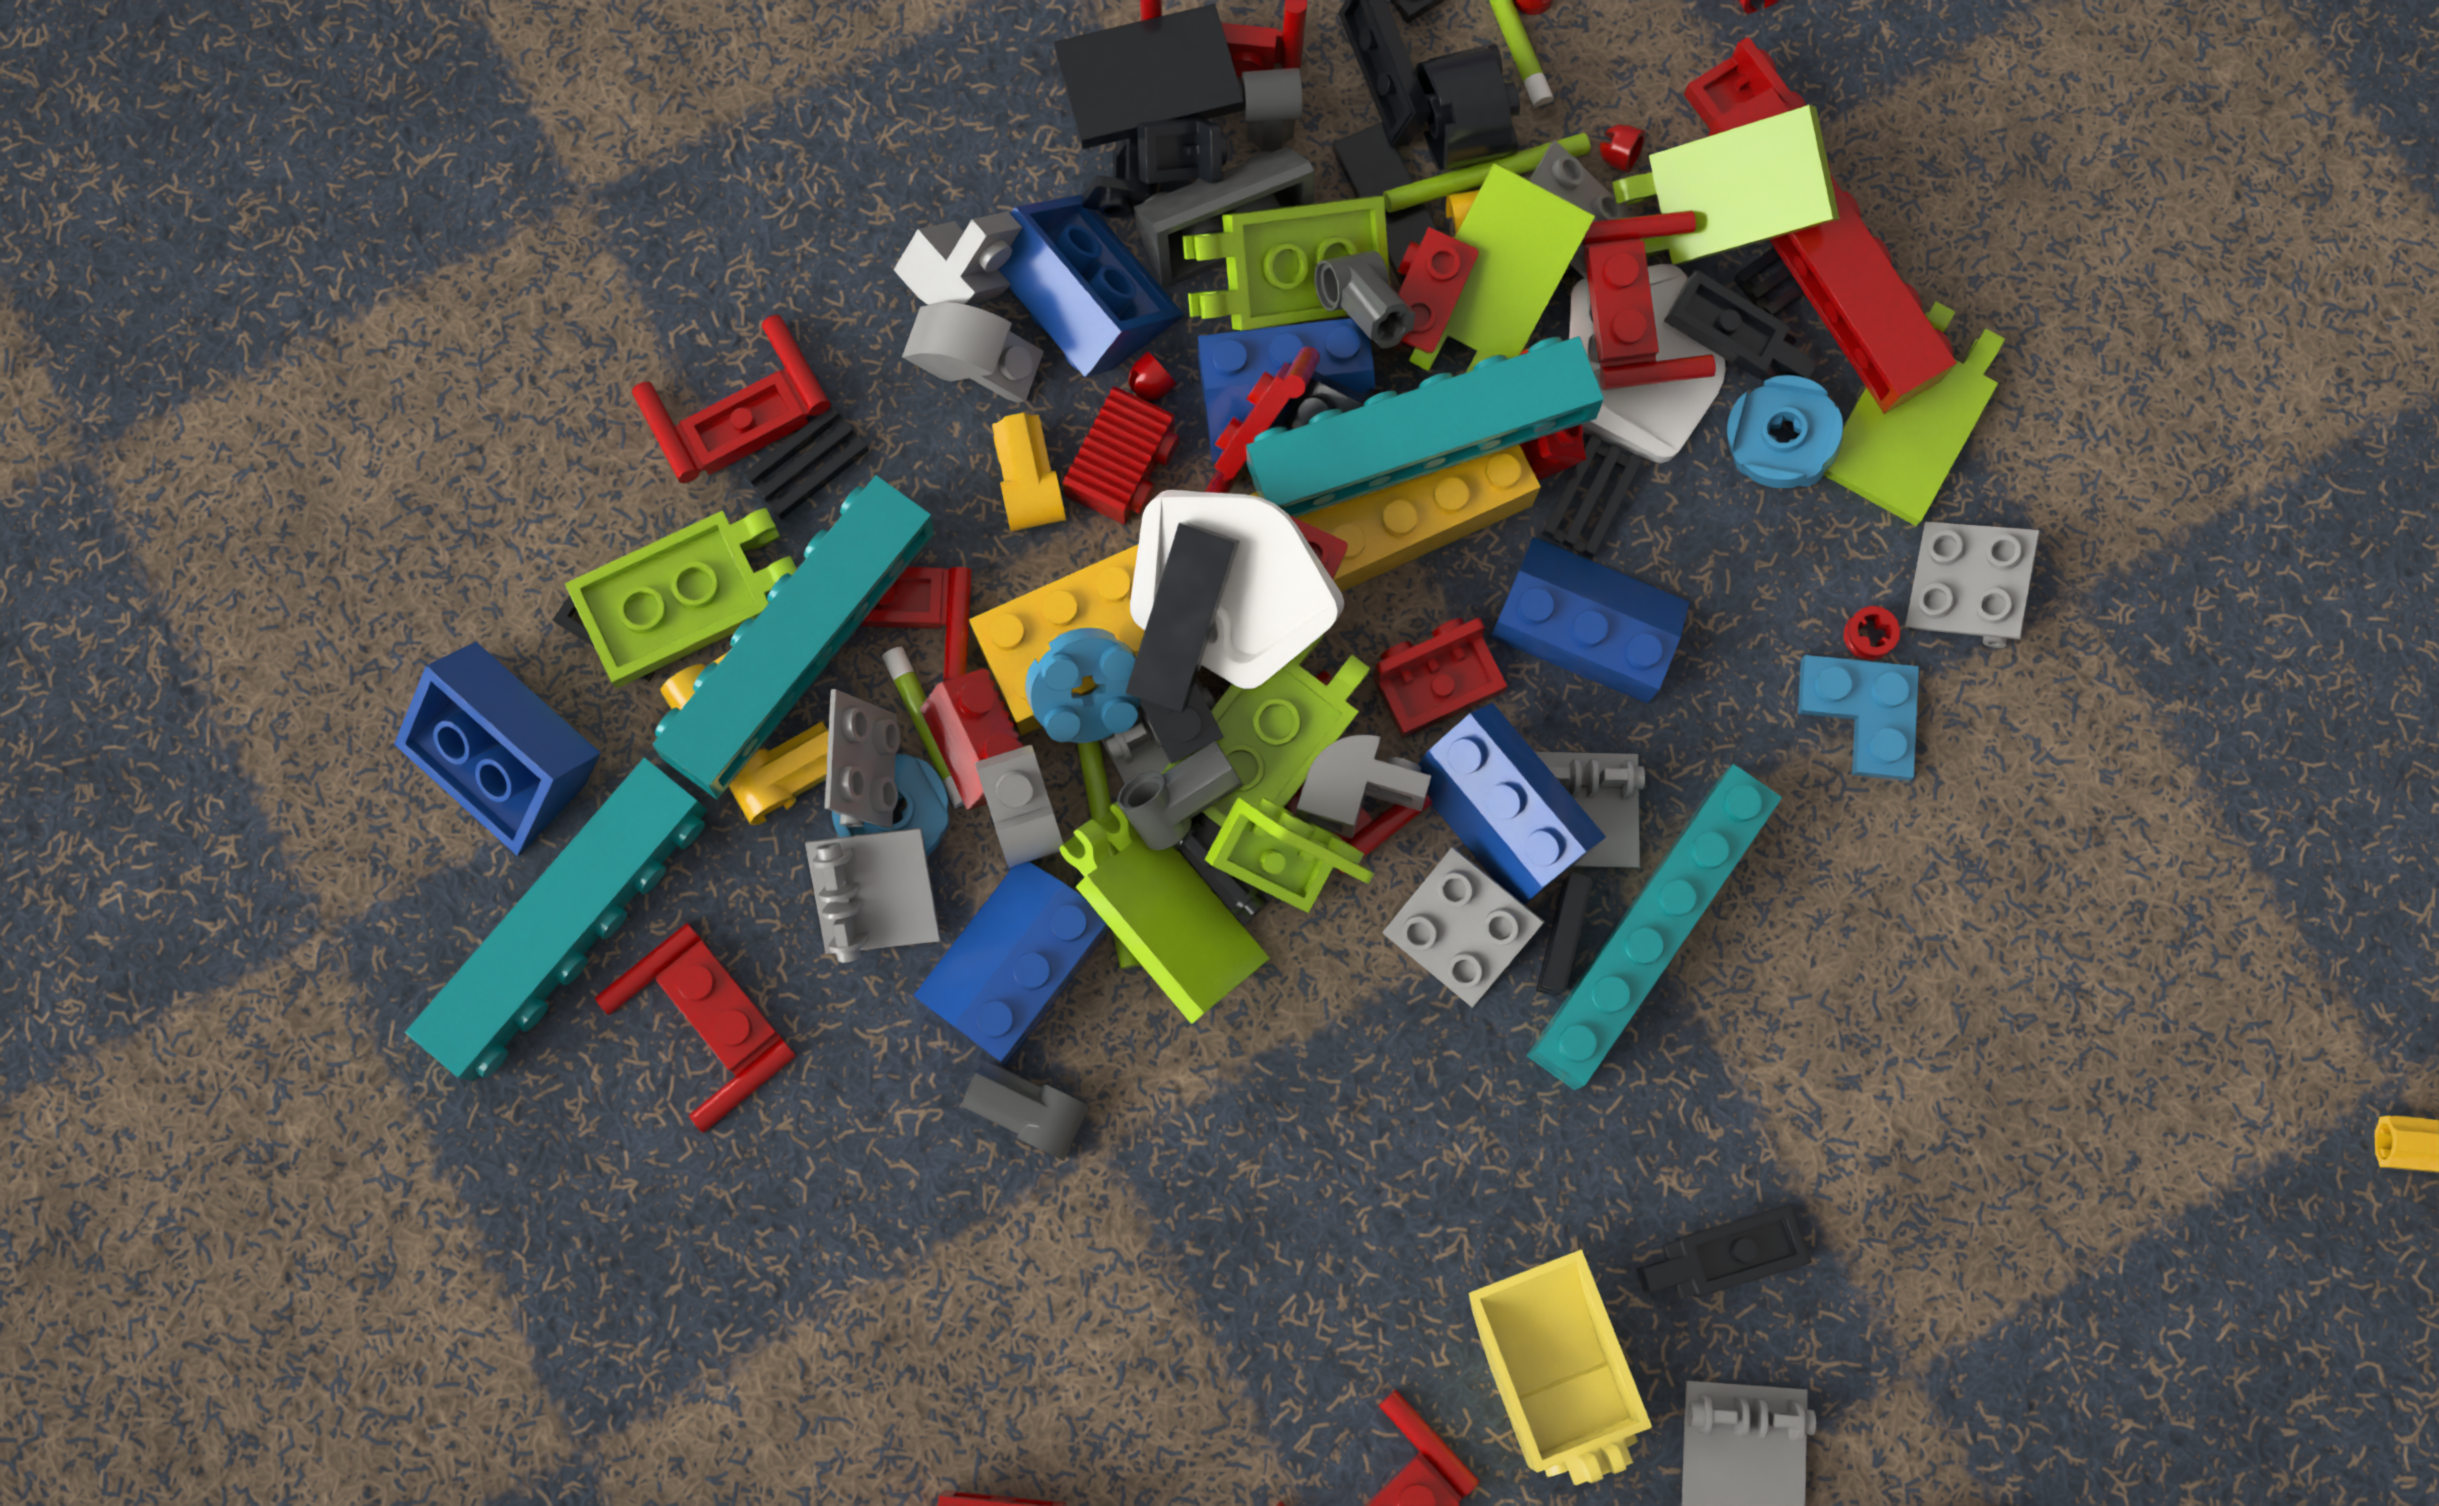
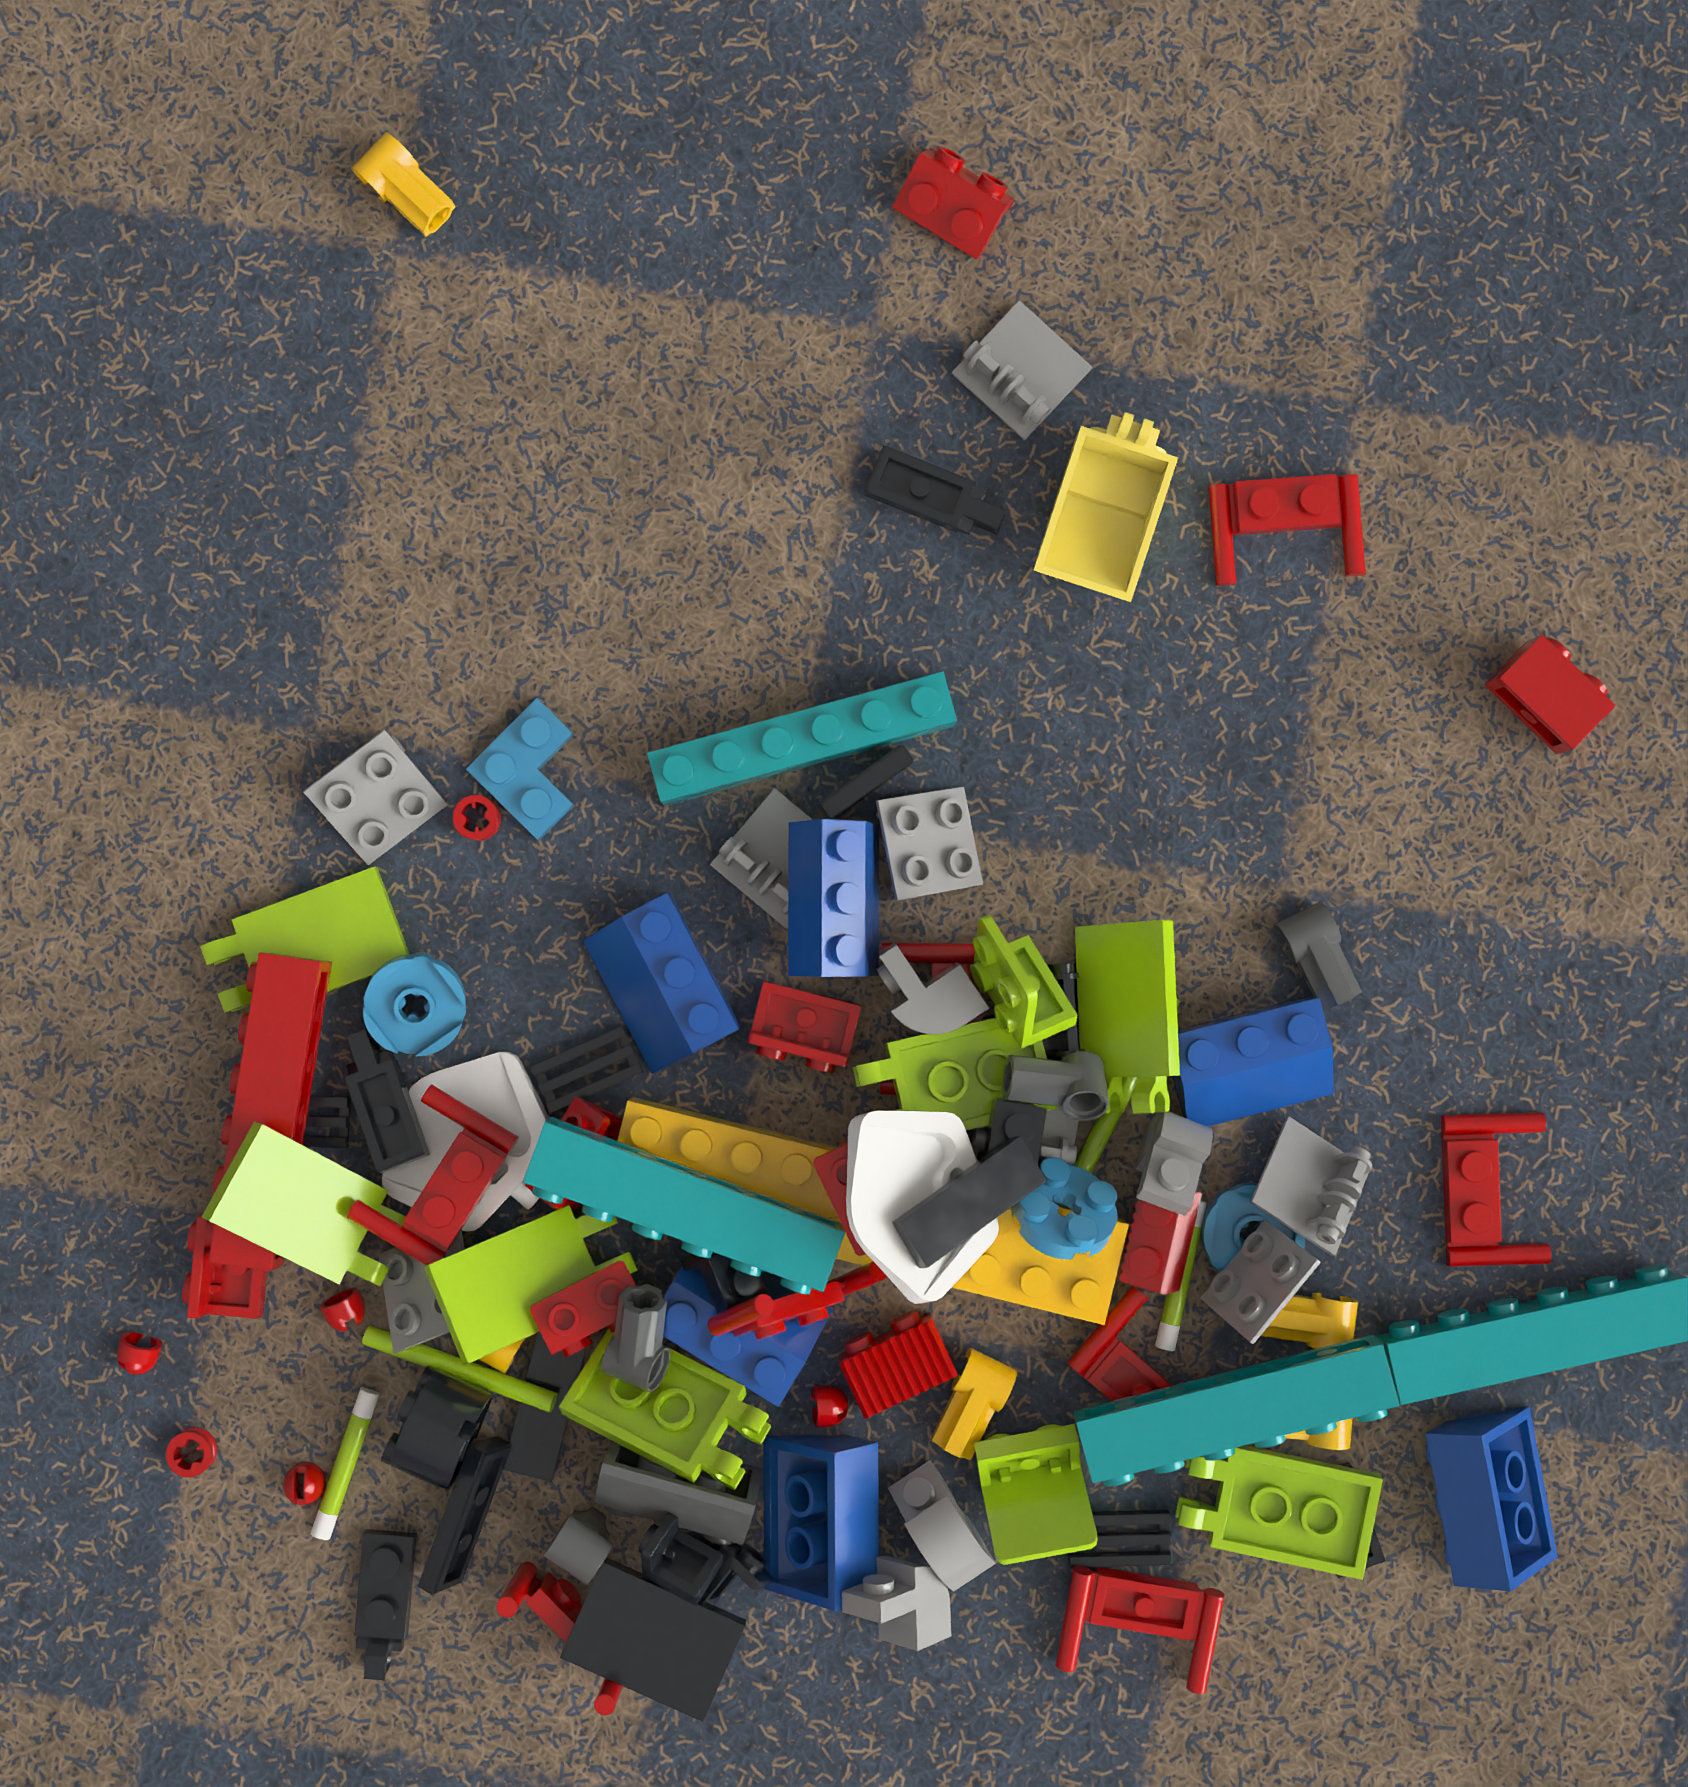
camera: 140 degrees left, 10 degrees up
(914, 434) = (1035, 1494): none -> lime bracket

